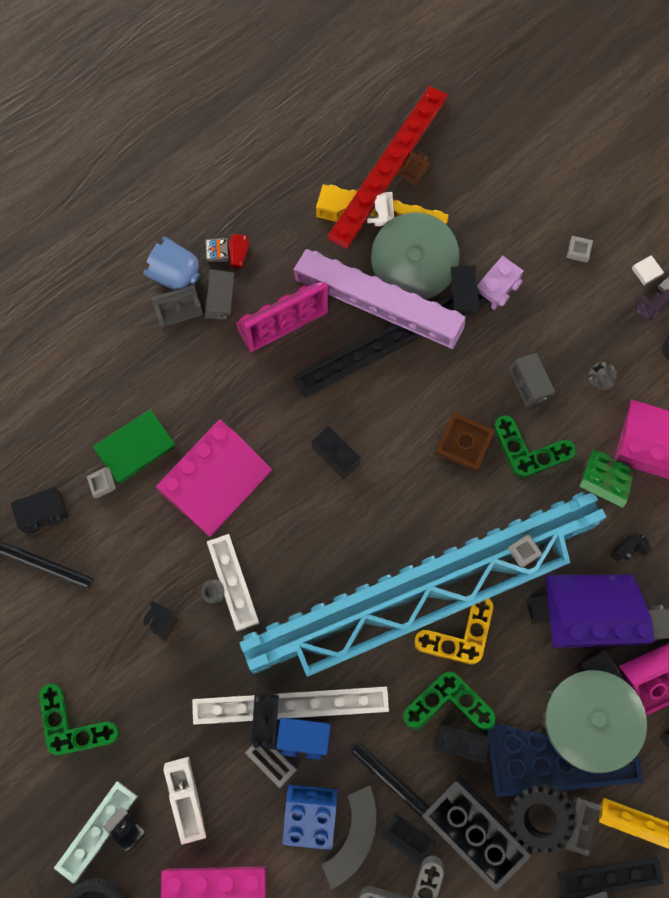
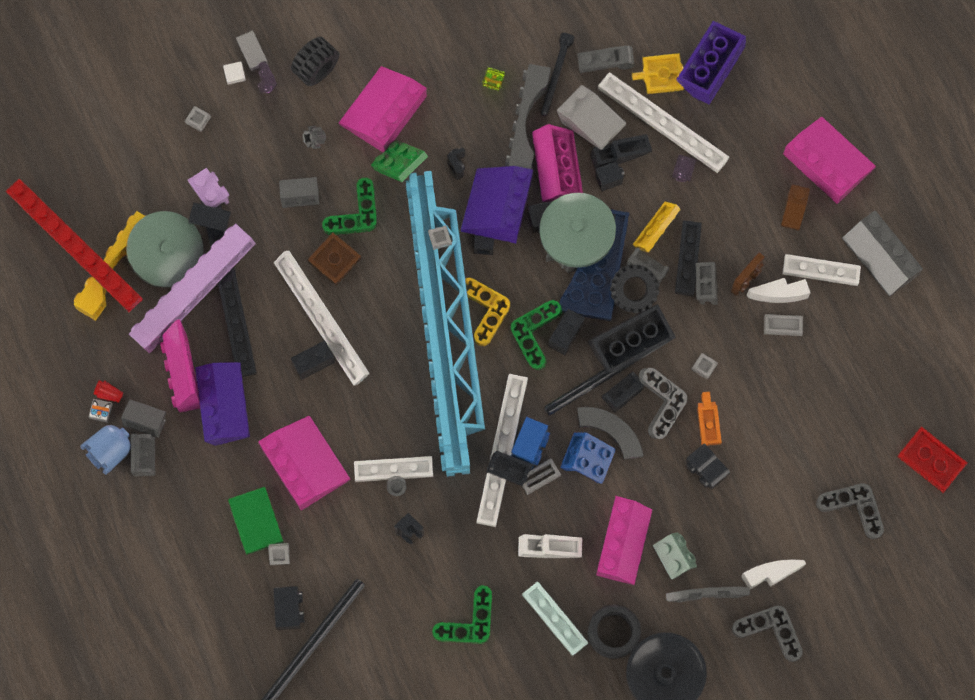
camera: 75 degrees left, 0 degrees up
(124, 830) = (560, 596): black bracket -> none
(256, 368) = (222, 402): none -> dark purple slope
(385, 209) = (117, 260): white bracket -> none
(389, 448) = (321, 318): none -> white plate
(415, 168) = (81, 225): reddish brown bracket -> none

